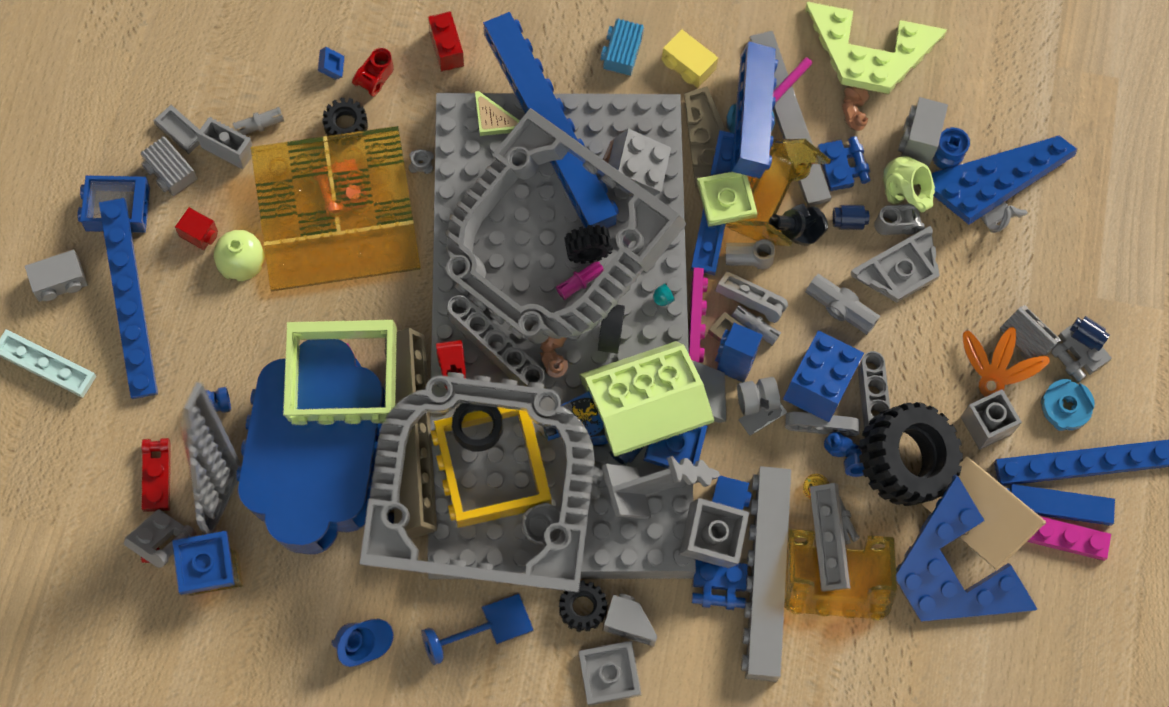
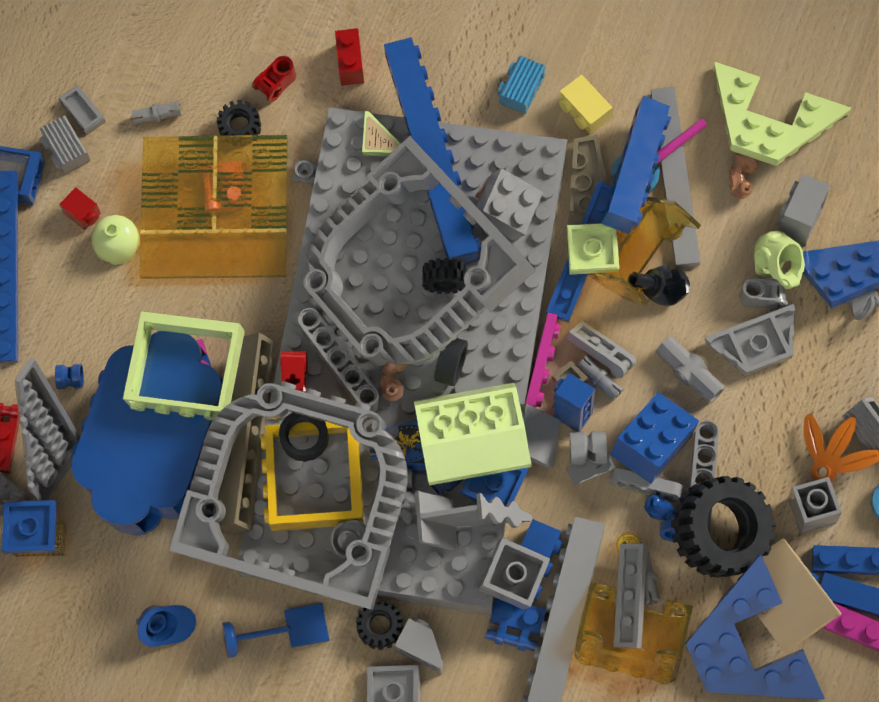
camera: 20 degrees right, 0 degrees up
(225, 142) = (120, 129): light grey brick -> none
(331, 63) = (235, 64): blue plate -> none
(579, 280) = (428, 310): dark pink axle -> none
(663, 295) = (509, 336): teal hinge -> none
(746, 254) = (605, 306): light grey piece -> none
(838, 172) = (712, 231): blue plate -> none
(850, 217) = (715, 284): dark blue brick -> none
(951, 148) = (829, 228): blue wheel -> none

